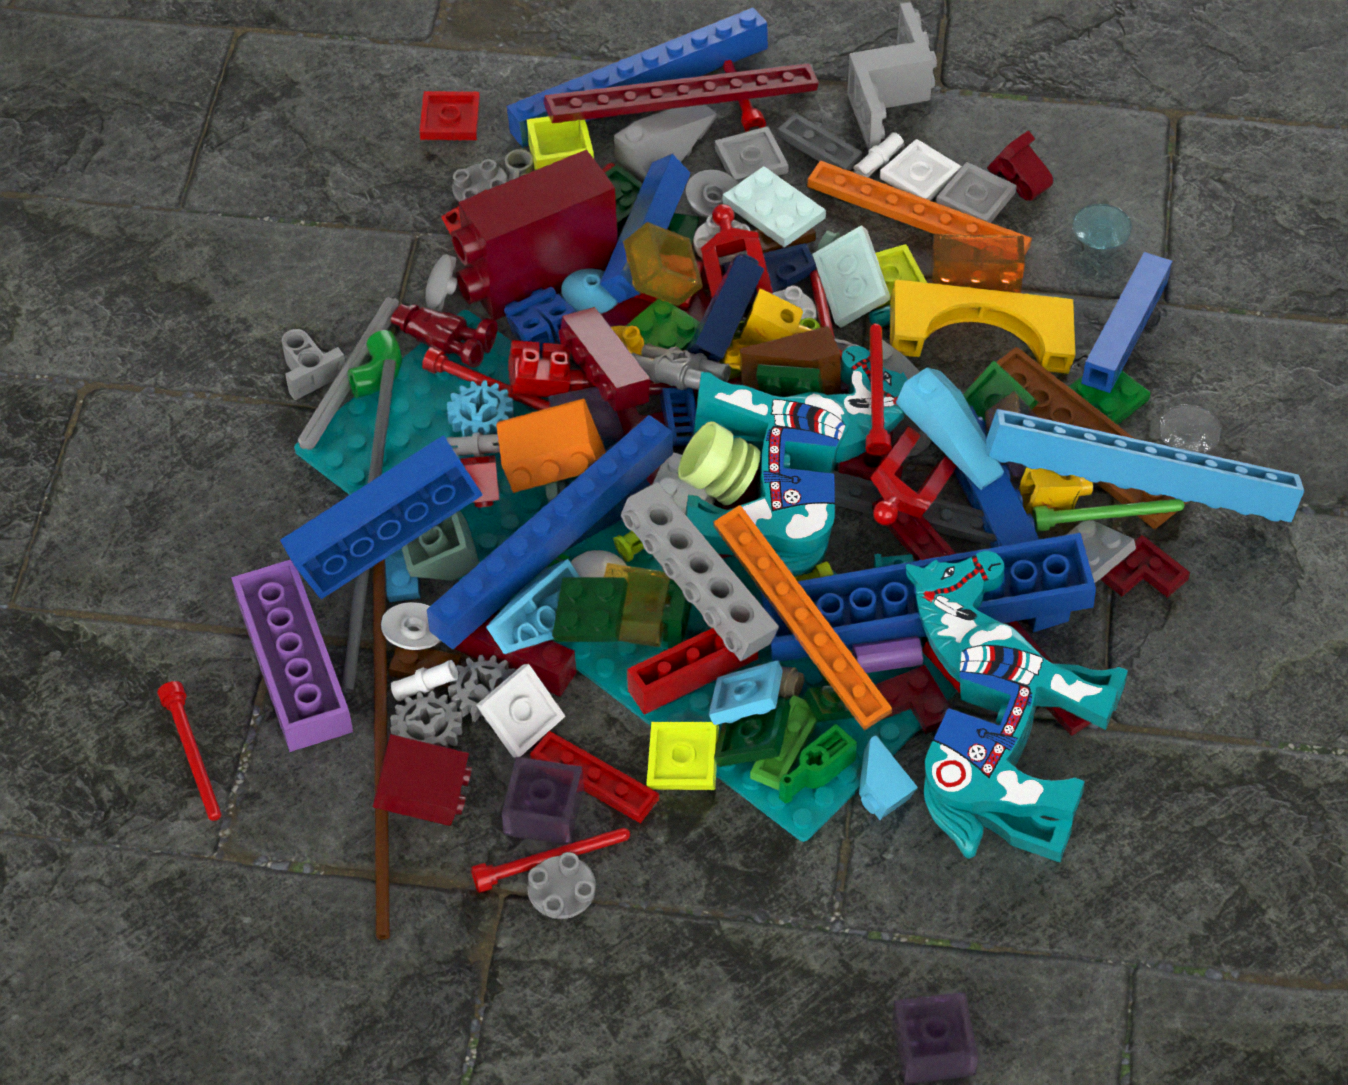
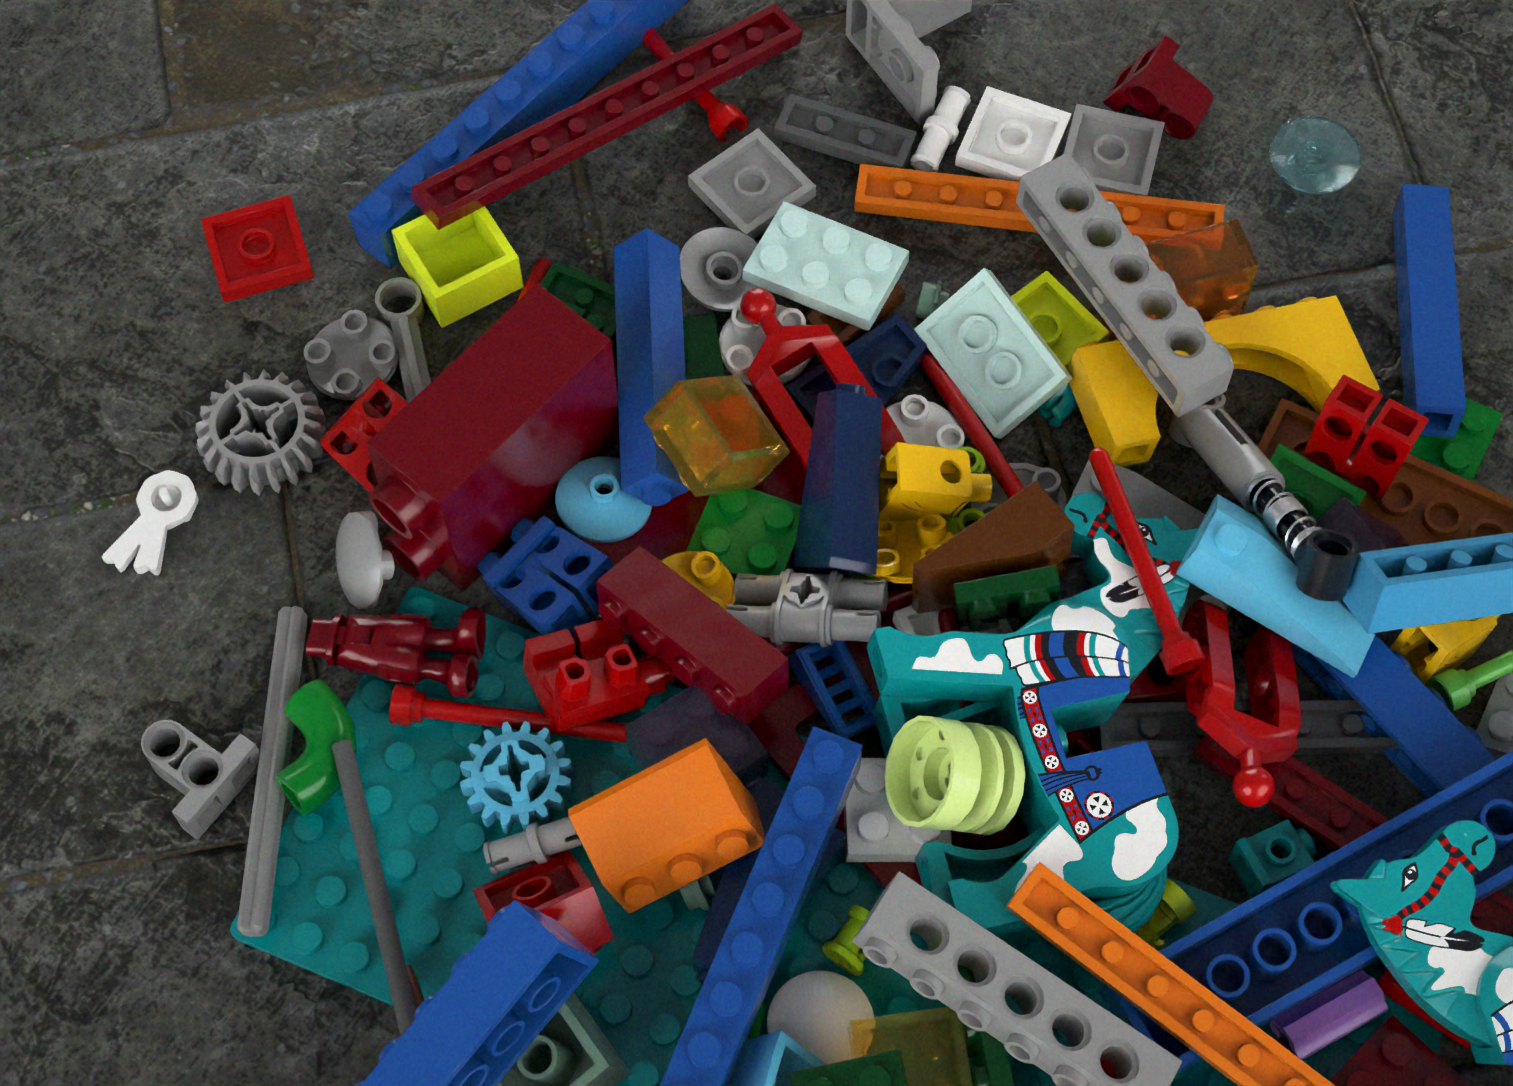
camera: 20 degrees left, 10 degrees up
(342, 231) = (163, 503): none -> white piece
(411, 207) = (249, 456): none -> light grey gear
(660, 136) = (604, 199): light grey wedge -> none
(934, 248) = (1124, 306): none -> light grey brick
(969, 377) = (1322, 555): none -> piece
(1045, 369) = (1359, 451): none -> red hips

